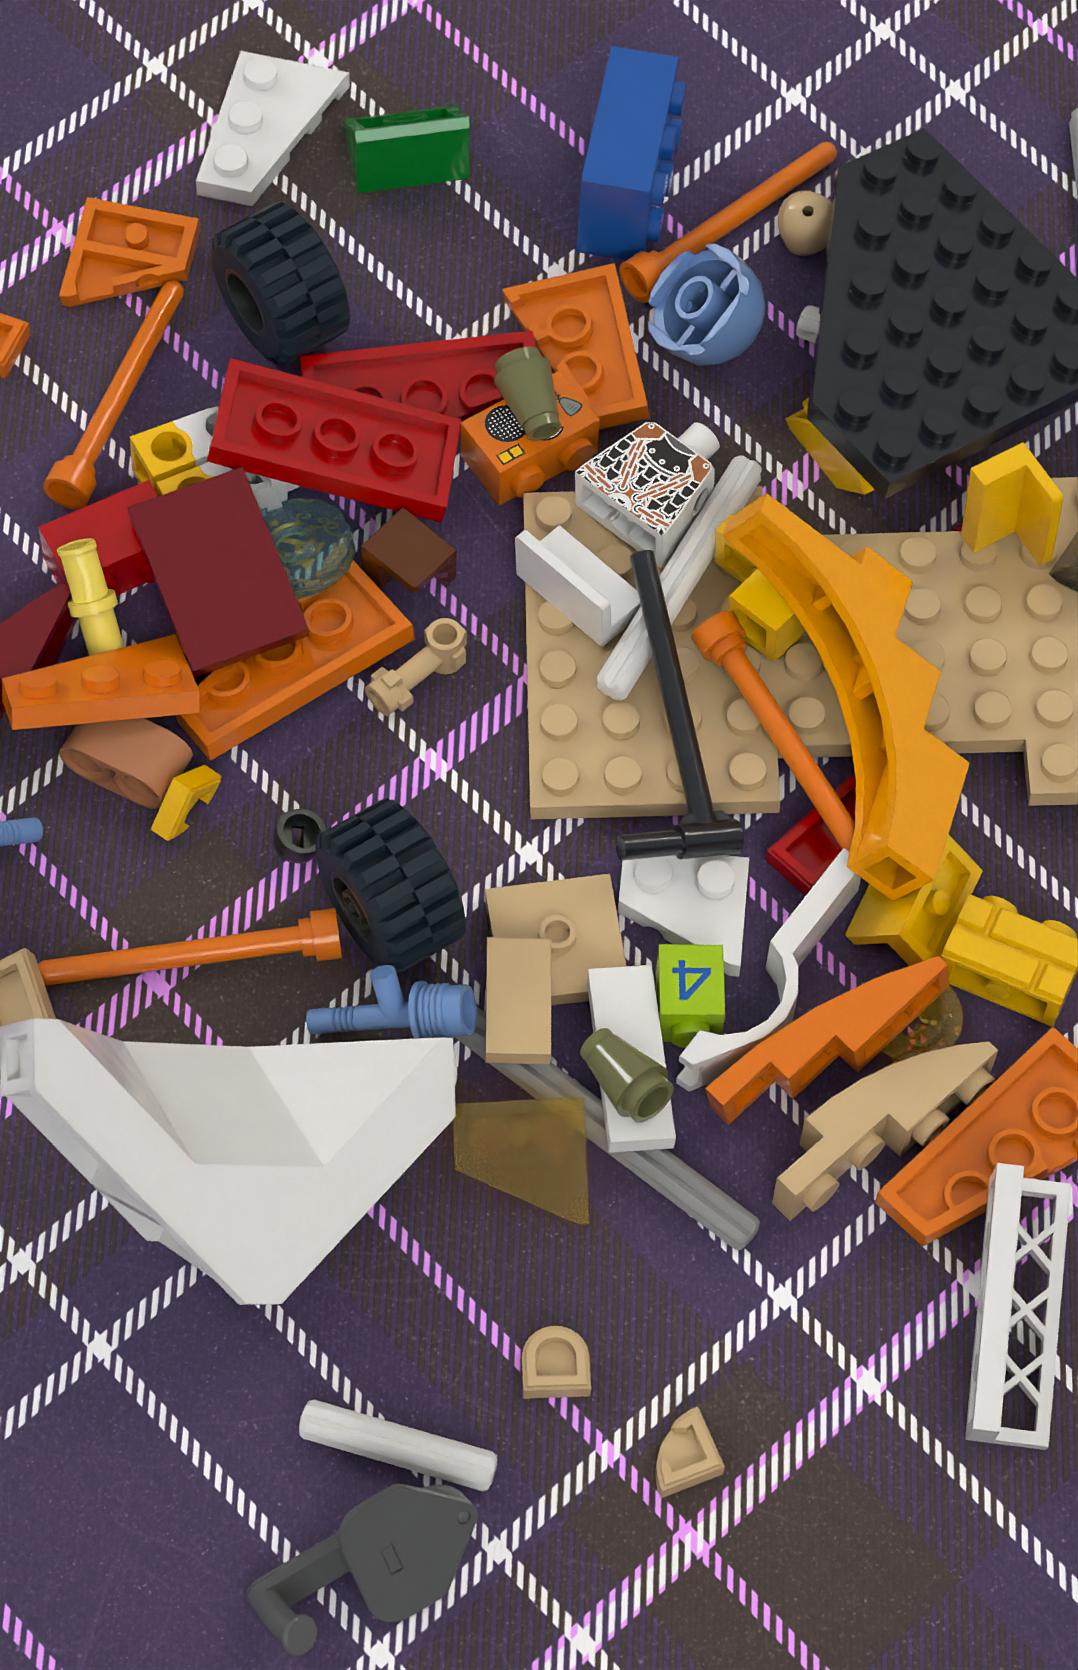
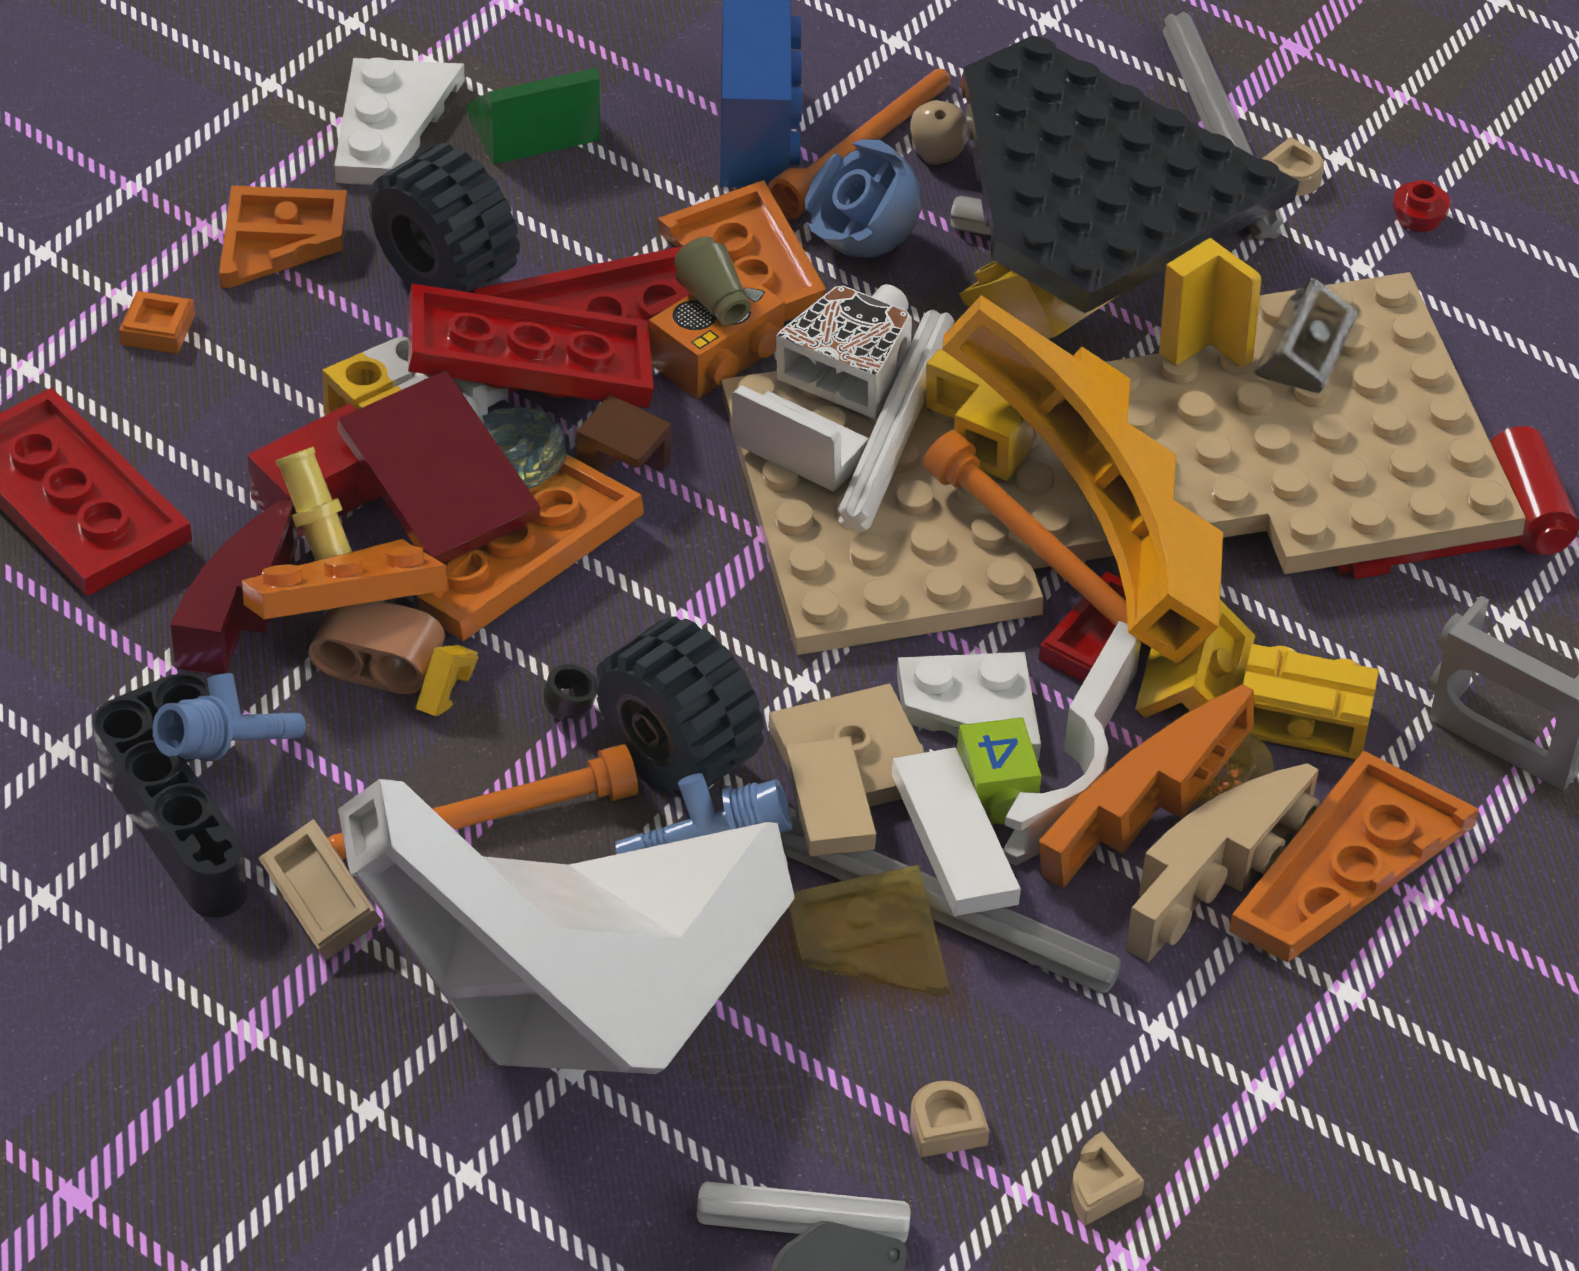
camera: 10 degrees left, 15 degrees down
(73, 478) = (270, 416): orange piece -> none
(442, 654) = (673, 522): tan bar -> none
(628, 1076) = (961, 834): olive cone -> none
(703, 829) = (973, 628): black bar -> none
(995, 1304) = (1384, 999): white fence -> none

